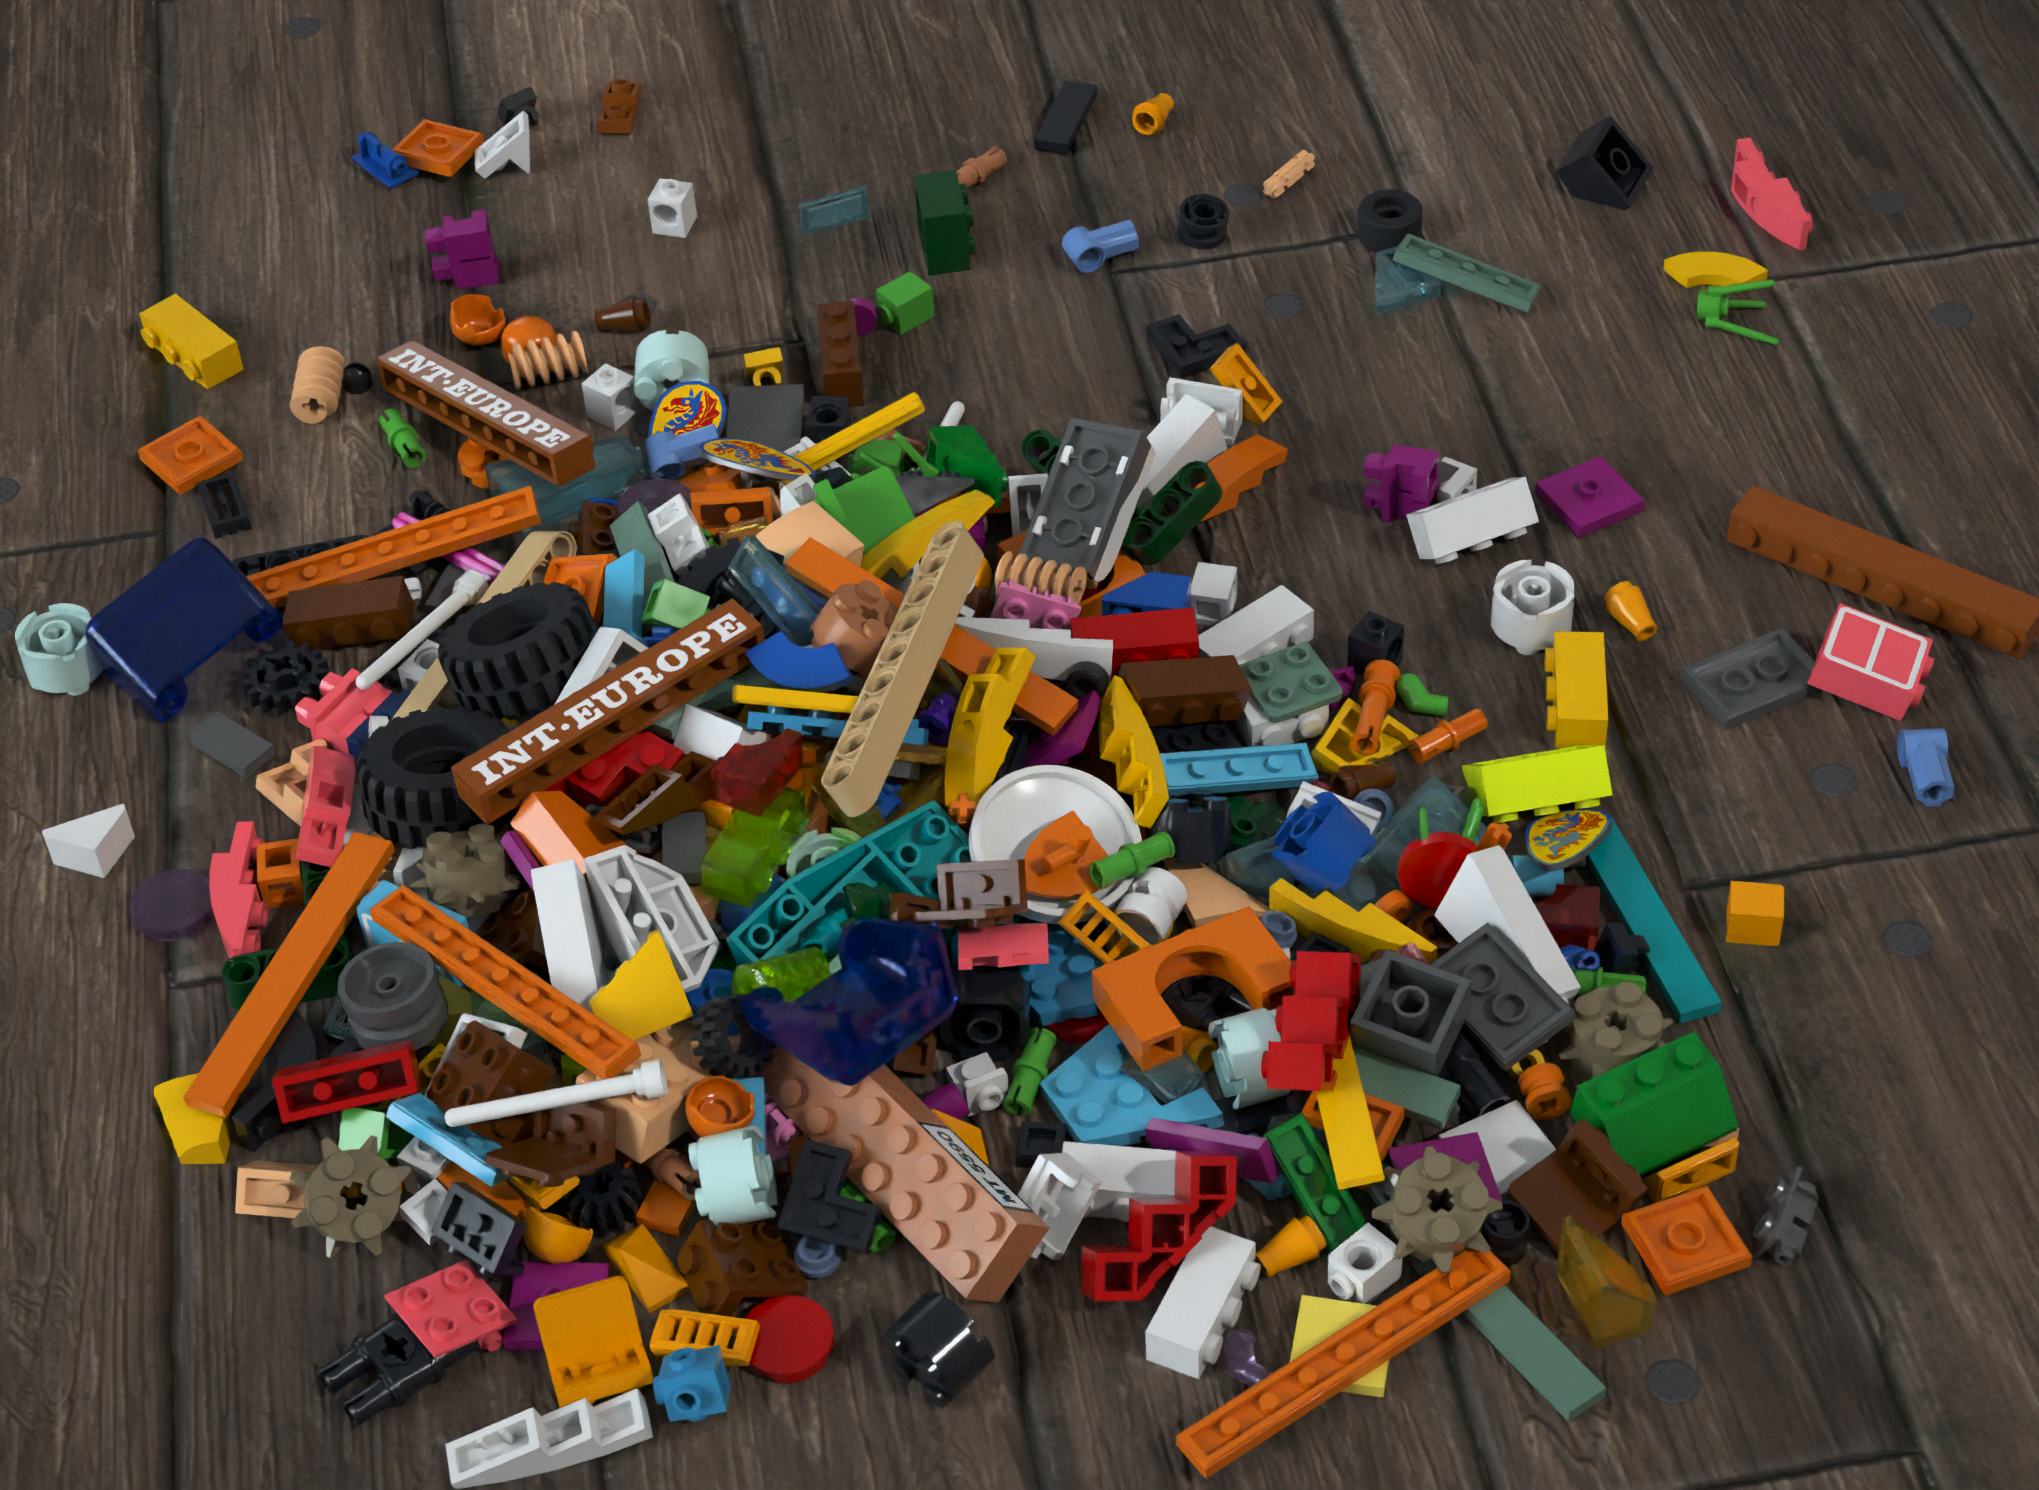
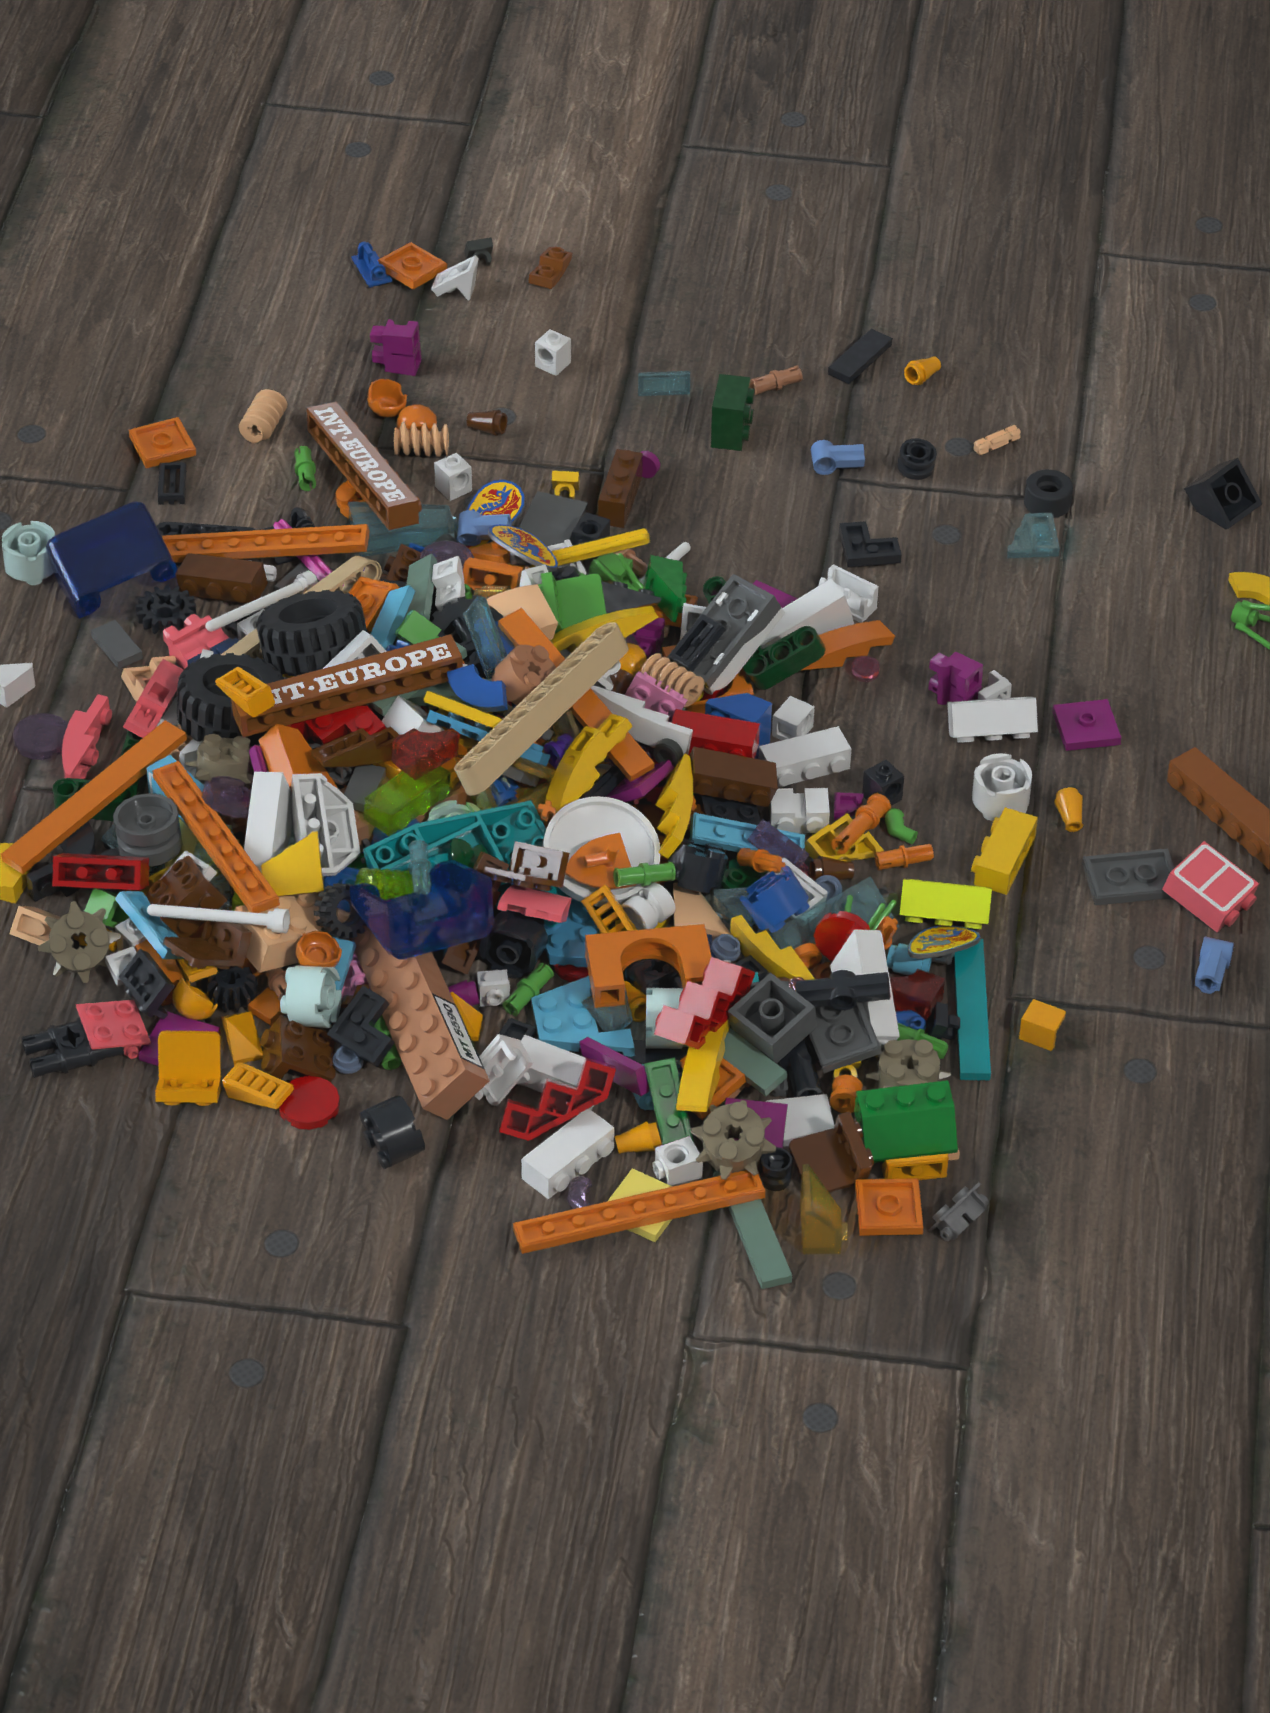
camera: 15 degrees right, 0 degrees up
(191, 341) = (191, 363): yellow brick -> none
(279, 873) = (111, 734): orange brick -> none
(357, 378) = (292, 418): black hinge -> none
(478, 758) = (249, 693): none -> light orange slope
(499, 917) = (227, 796): none -> clear purple tile
(540, 1444) = (134, 1117): white slope -> none
(668, 361) = (498, 462): light aqua brick -> none
(693, 1384) = (239, 1109): dark azure brick -> none
(821, 940) = (420, 867): none -> clear light blue axle
(905, 303) = (681, 463): bright green brick -> none
(1073, 497) = (700, 644): none -> black tile
(1237, 371) = (890, 590): light orange slope -> none
(1269, 501) = (865, 668): none -> clear pink tile
(1272, 794) = (760, 860): none -> orange axle
(1282, 768) = (776, 843): none -> clear purple hinge
(1290, 682) = (809, 791): sand green bracket -> none
(1467, 273) = (1082, 545): sand green tile -> none
(1494, 943) = (845, 989): none -> black piece

